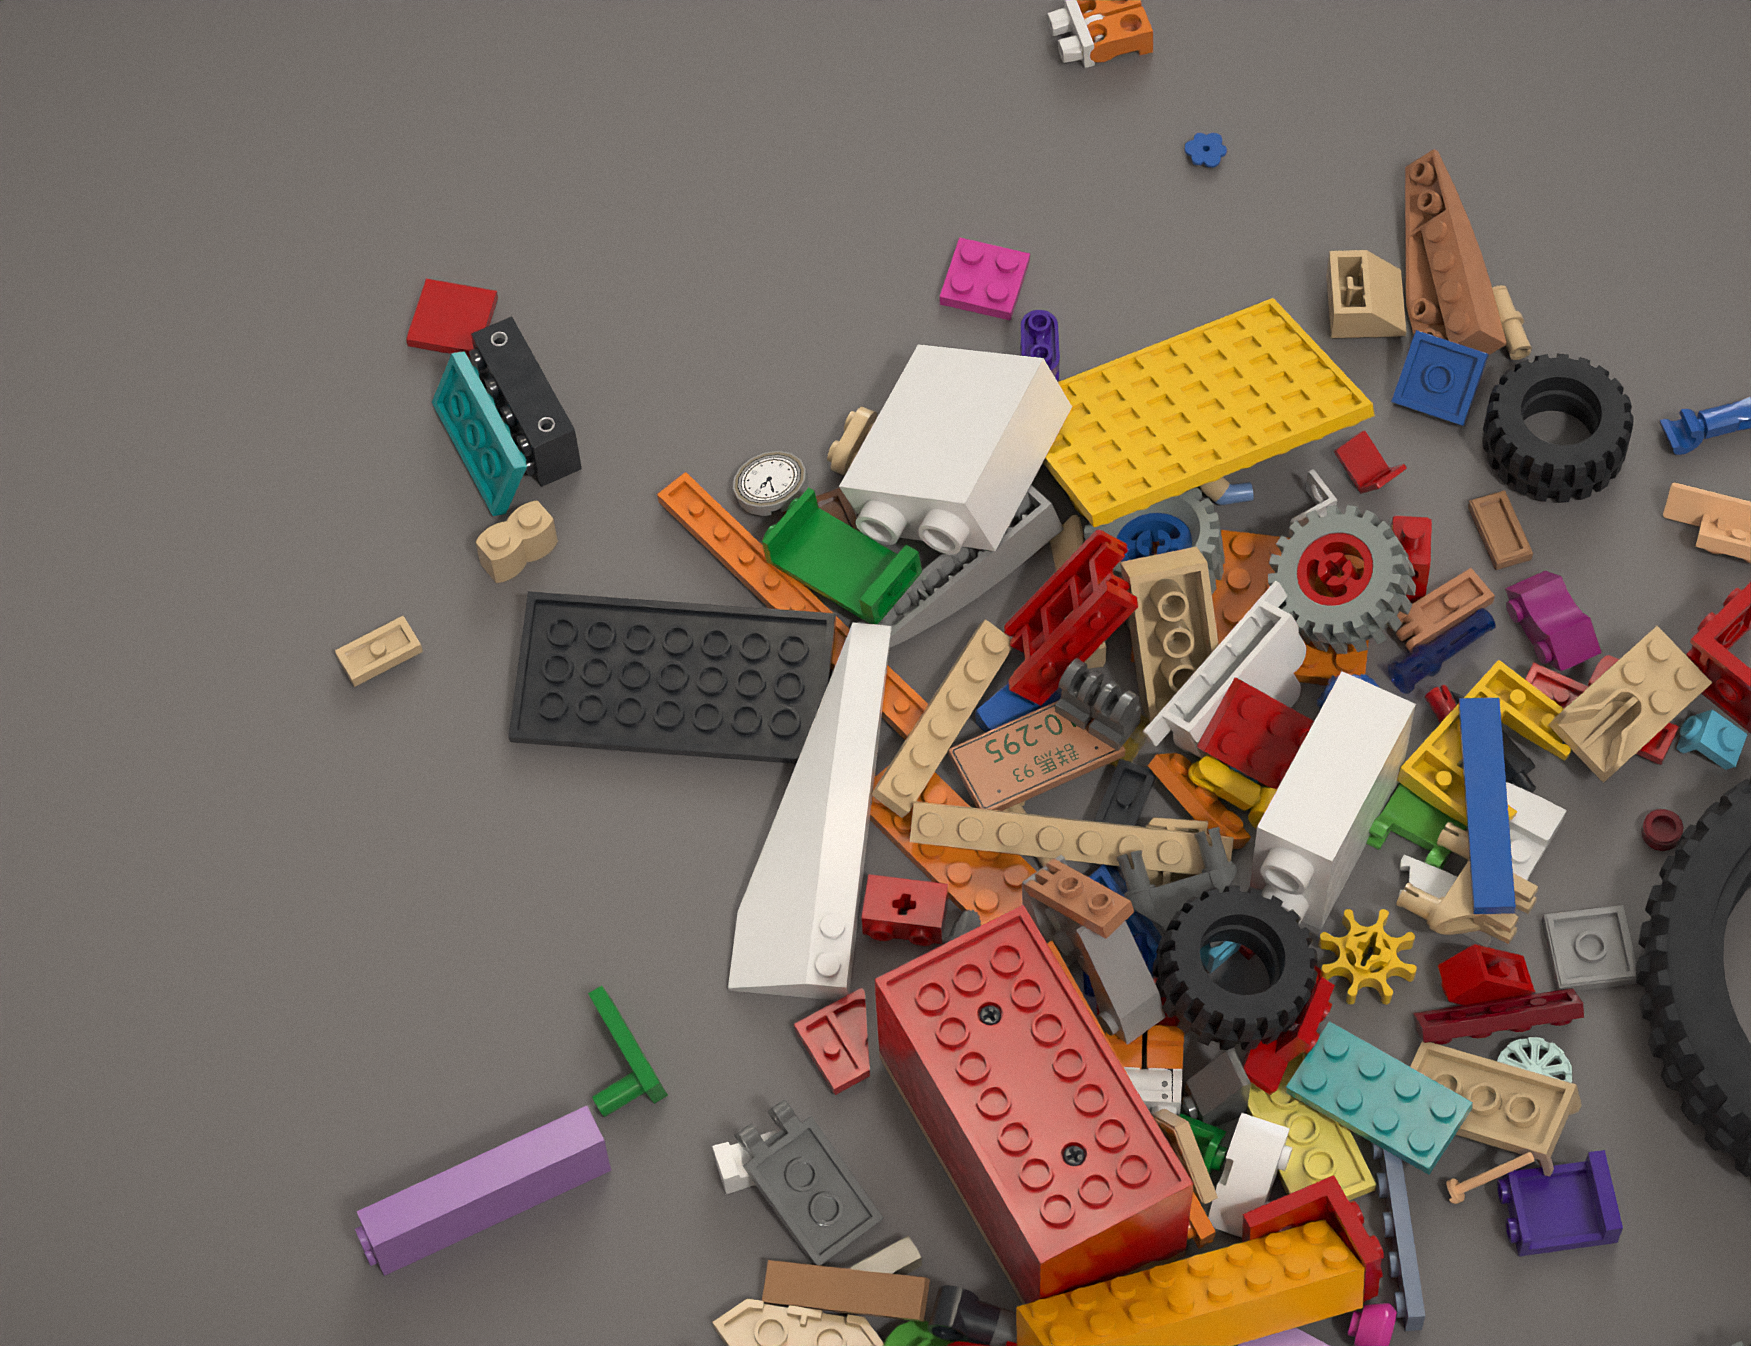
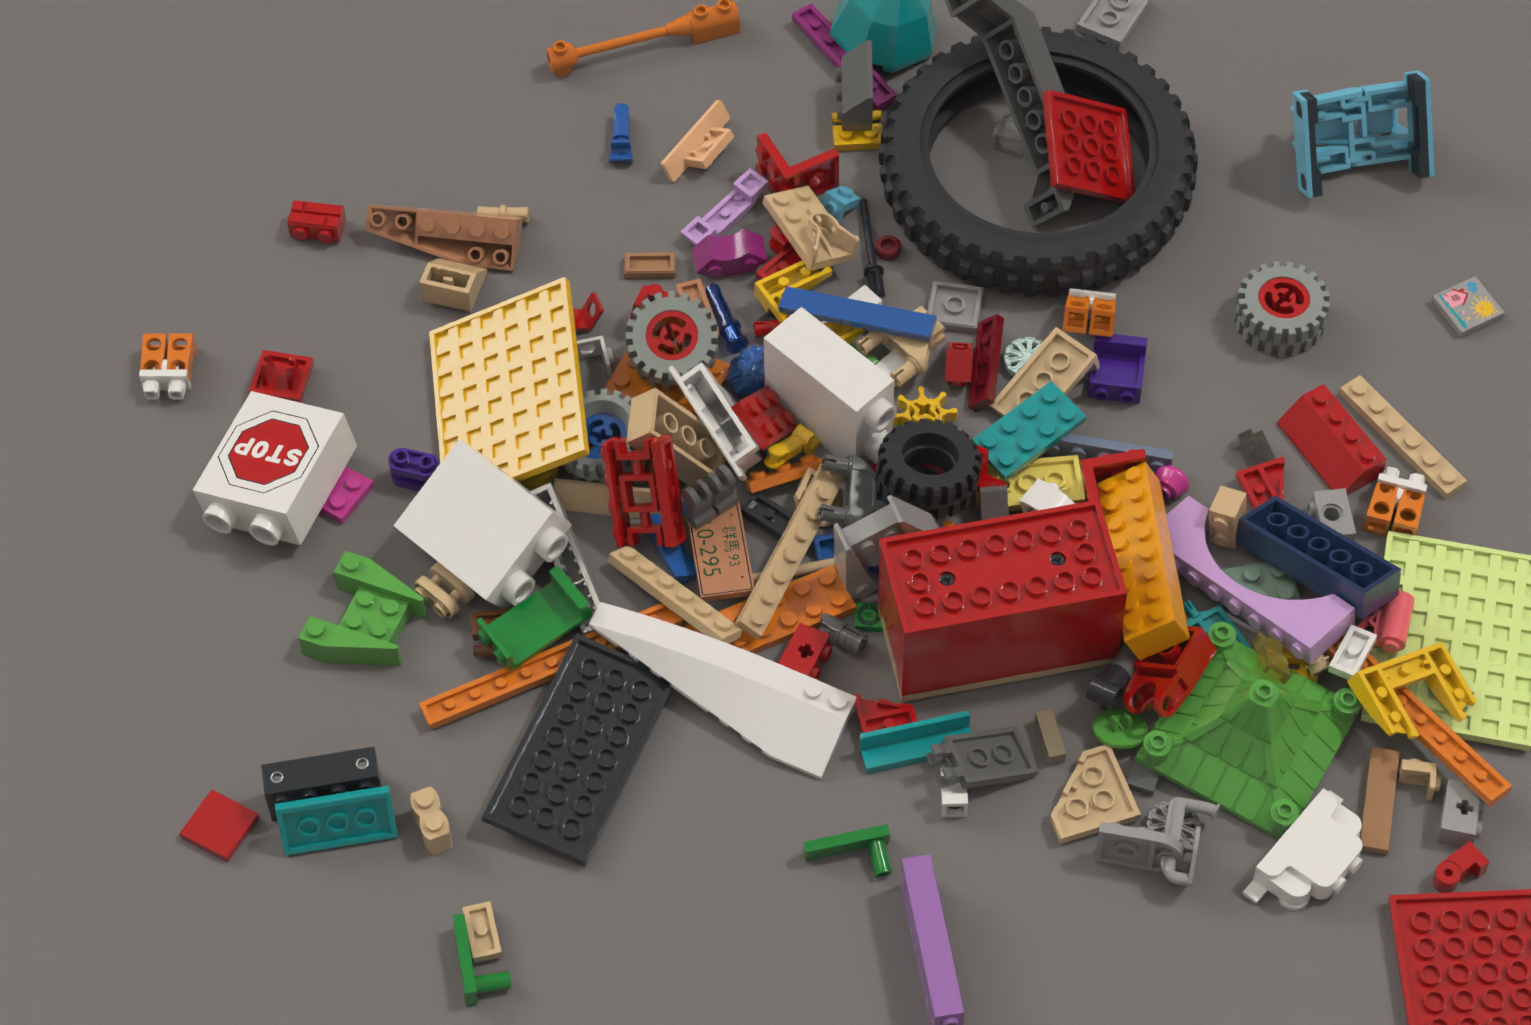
camera: 75 degrees left, 5 degrees down
(304, 656) = (474, 984): none -> green piece
(770, 482) = (448, 654): tile -> none
(797, 380) = (371, 621): none -> bright green wedge
(812, 1089) = (908, 742): none -> teal panel
(846, 1290) = (1064, 754): medium nougat tile -> none
(966, 189) = (274, 469): none -> white brick
(1080, 898) = (875, 516): nougat hinge -> none
(1134, 155) = (282, 375): none -> red plate
(1206, 149) = (293, 337): blue plant -> none
(1400, 109) = (316, 221): none -> red brick
(1440, 378) = (533, 257): blue plate -> none
(1458, 1189) = (1092, 394): light nougat piece -> none
(1563, 387) = (596, 233): black tyre -> none
(1604, 821) = (873, 271): none -> black piece
(1631, 597) = (729, 210): none -> lavender slope
(1638, 1131) = (1091, 305): none -> orange hips

